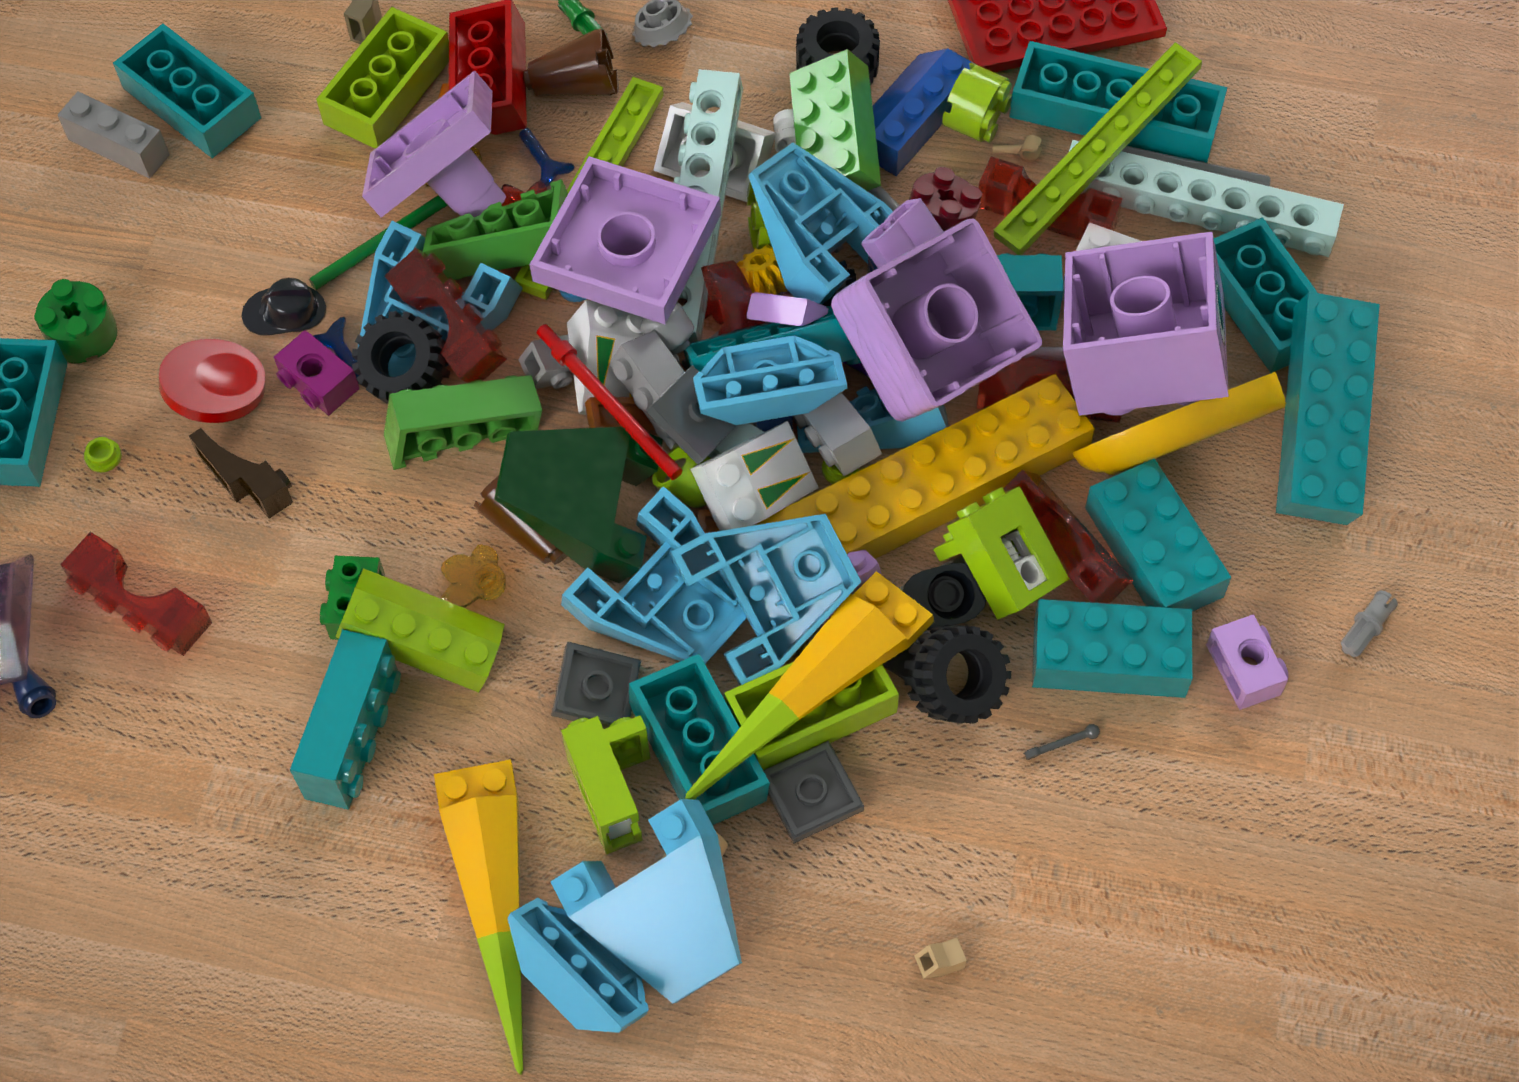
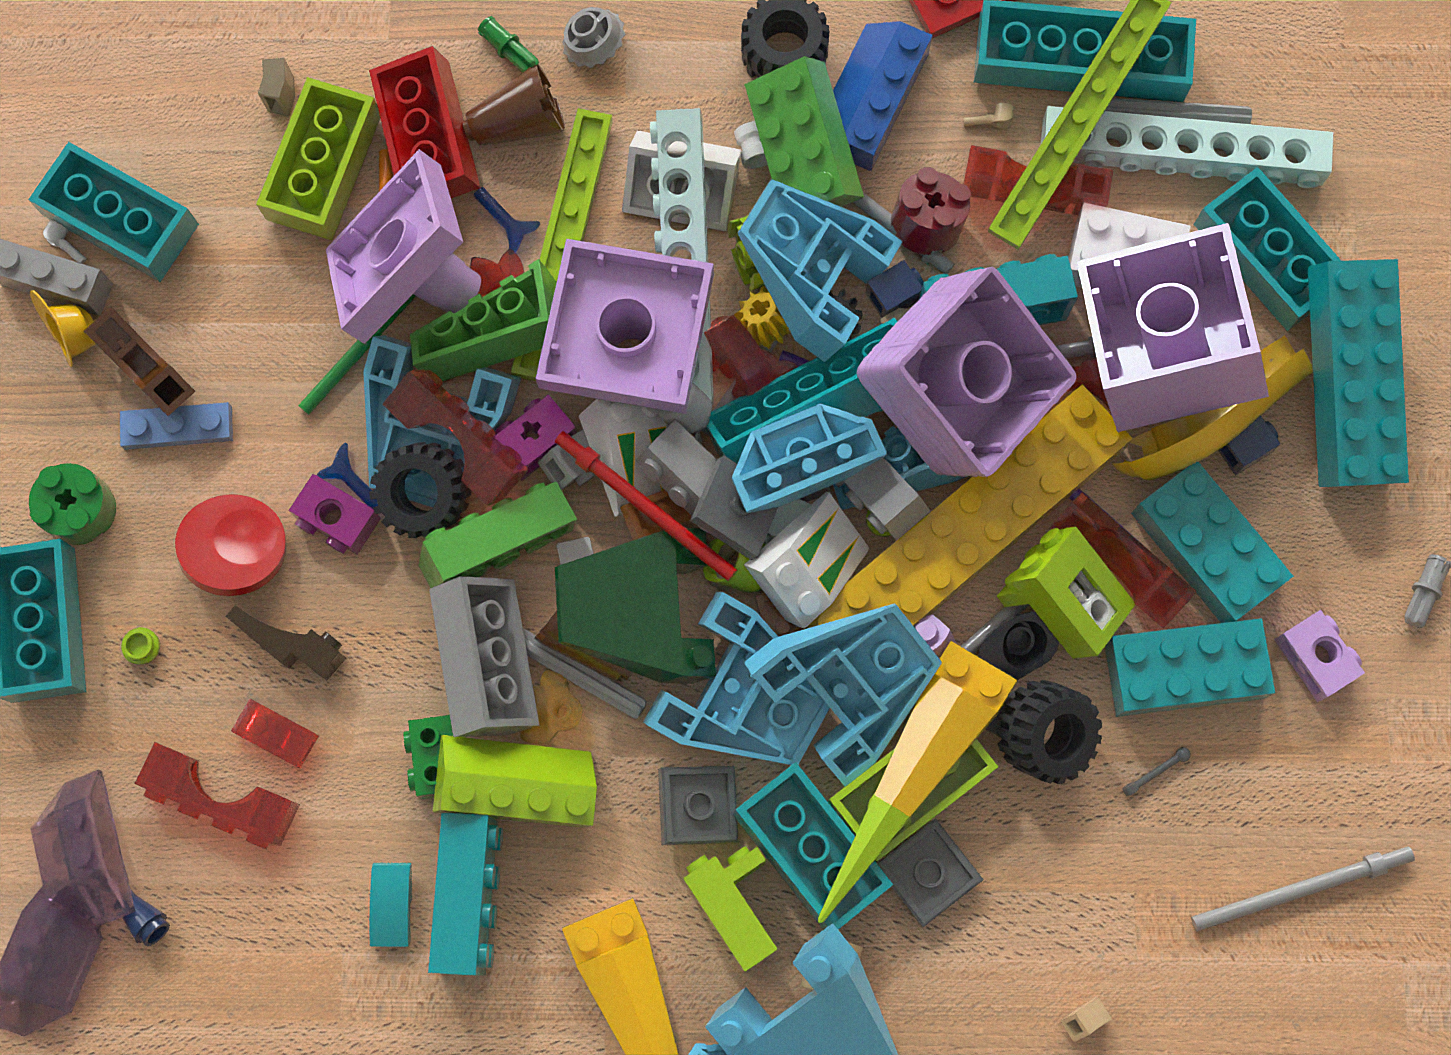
camera: 10 degrees left, 15 degrees up
(117, 175) = (66, 326): none -> yellow piece
(130, 103) = (55, 236): none -> white hand
(180, 226) = (139, 361): none -> reddish brown arch
(191, 277) = (183, 427): none -> medium blue plate
(206, 551) = (274, 733): none -> clear red slope
(272, 723) = (390, 904): none -> teal slope
(283, 308) = (280, 444): black piece -> none
(421, 511) = (483, 657): none -> light grey brick
(511, 552) = (585, 678): none -> light grey axle
(518, 332) = (542, 418): none -> magenta brick
(784, 309) = (800, 368): lavender slope -> none
(902, 231) = (902, 262): lavender brick -> none
(978, 102) = (942, 79): lime brick -> none
(1211, 461) = (1250, 446): none -> dark blue brick
(1267, 870) = (1372, 866): none -> light grey bar

